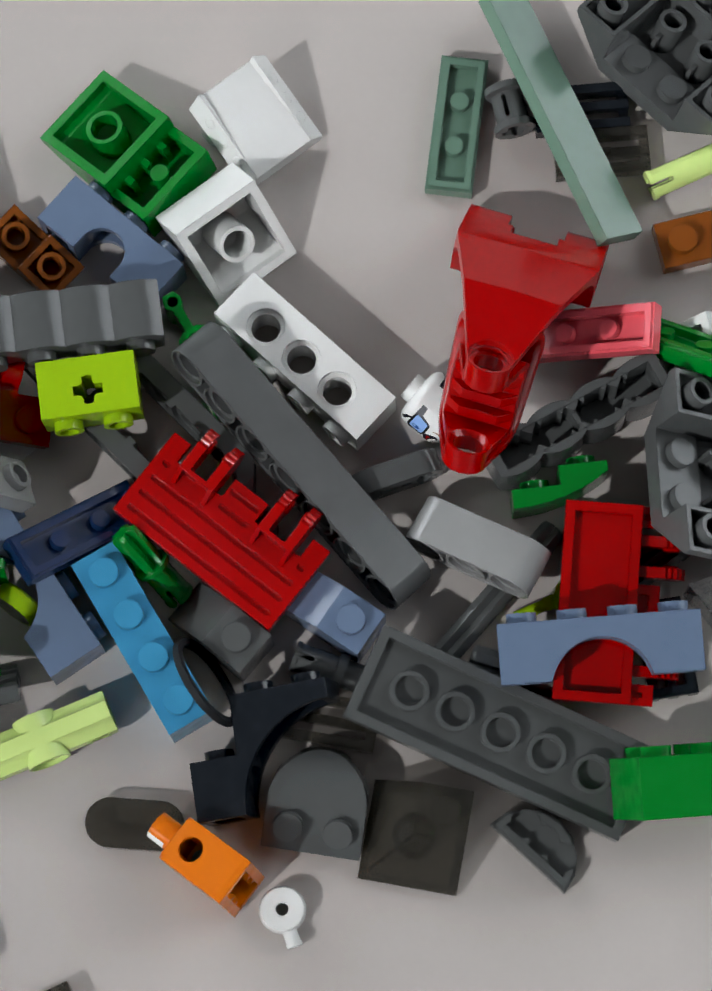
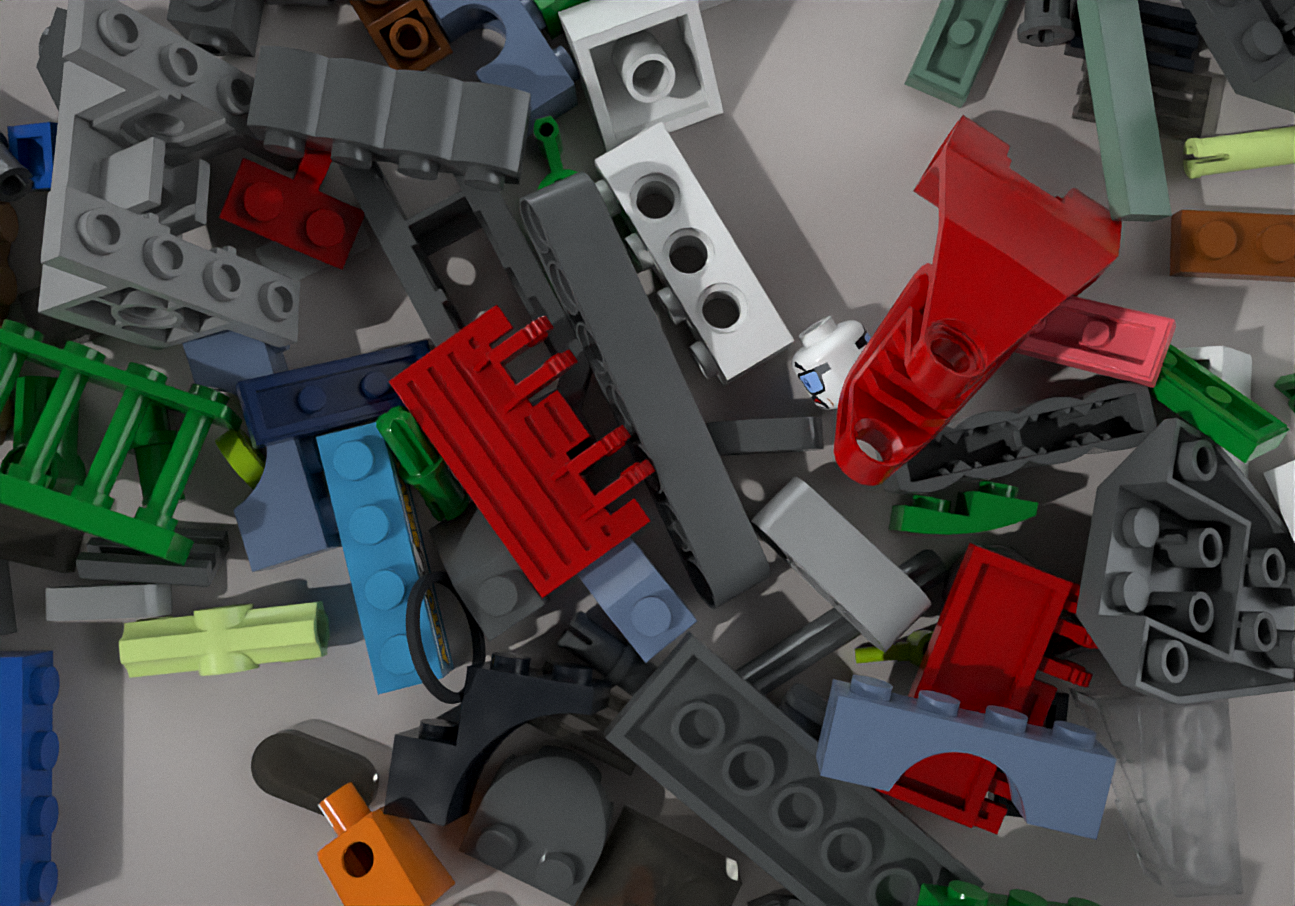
camera: 10 degrees right, 10 degrees up
(65, 384) = (372, 196): lime brick -> none

